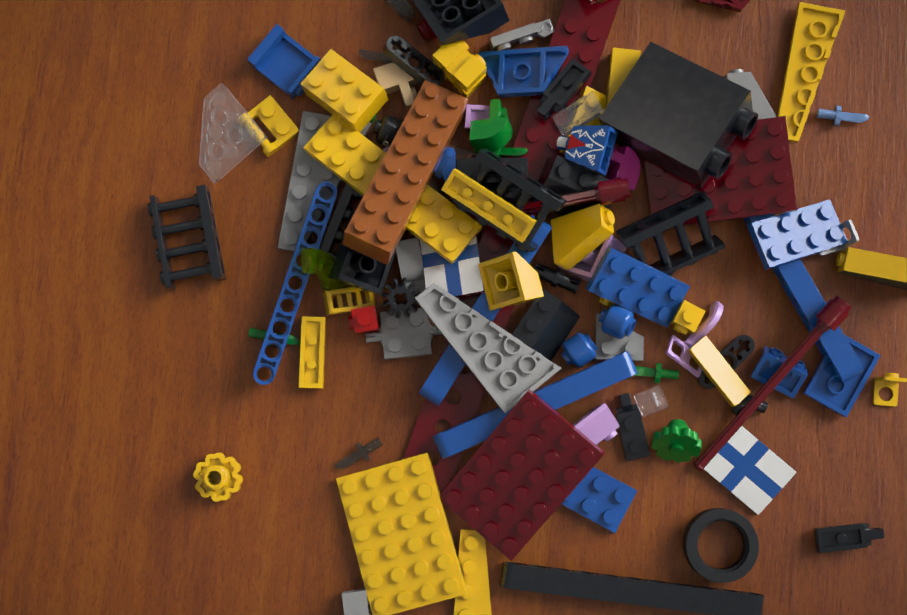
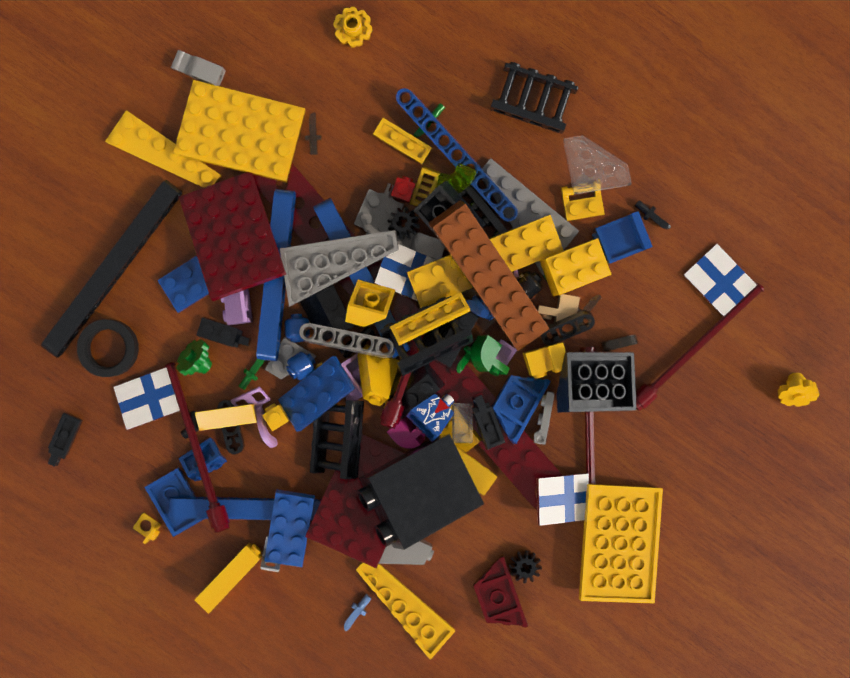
camera: 115 degrees right, 5 degrees up
(242, 49) = (649, 212): none -> black piece
(562, 295) = (338, 337): none -> light grey beam
(651, 401) = (233, 359): clear slope -> none

